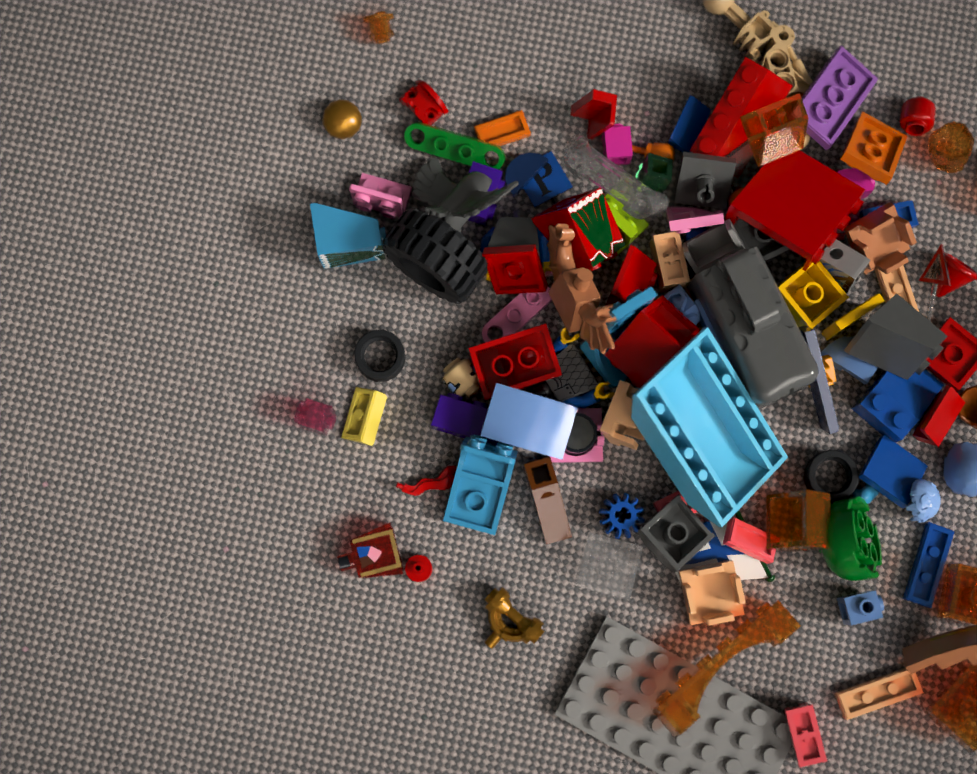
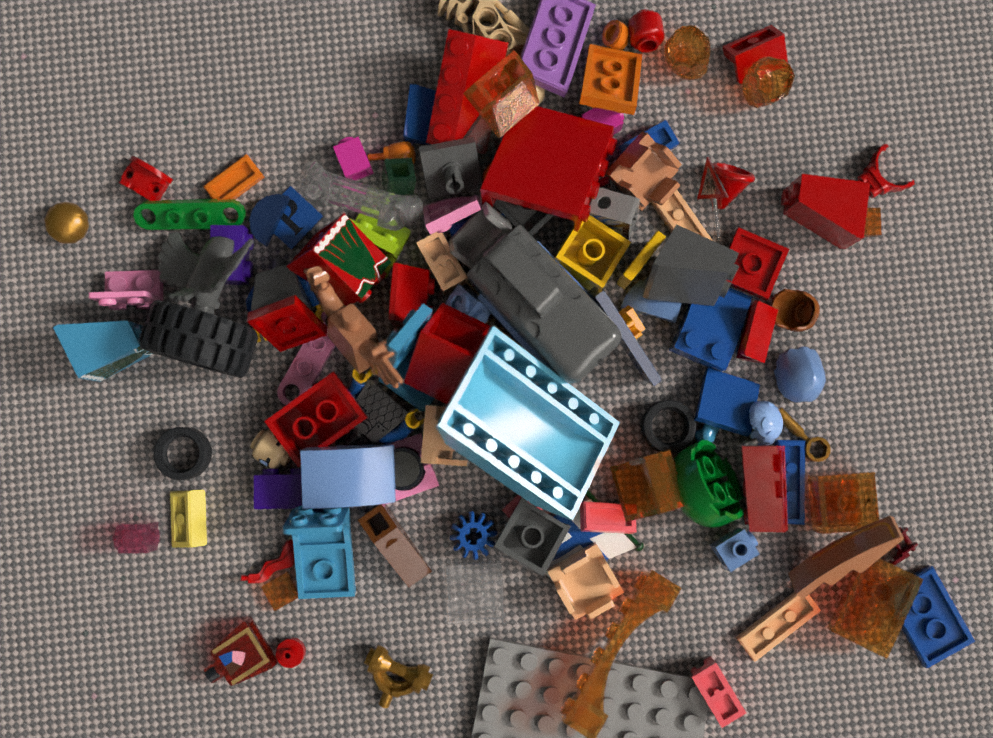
camera: 15 degrees left, 5 degrees up
(380, 27) = (73, 114): clear orange brick -> none
(427, 509) = (280, 591): none -> clear orange tile
(599, 109) = (318, 128): red panel -> none
(888, 111) = (615, 35): none -> orange tile
(905, 559) = (765, 488): none -> red wedge
(950, 521) = (798, 431): none -> pearl gold piece

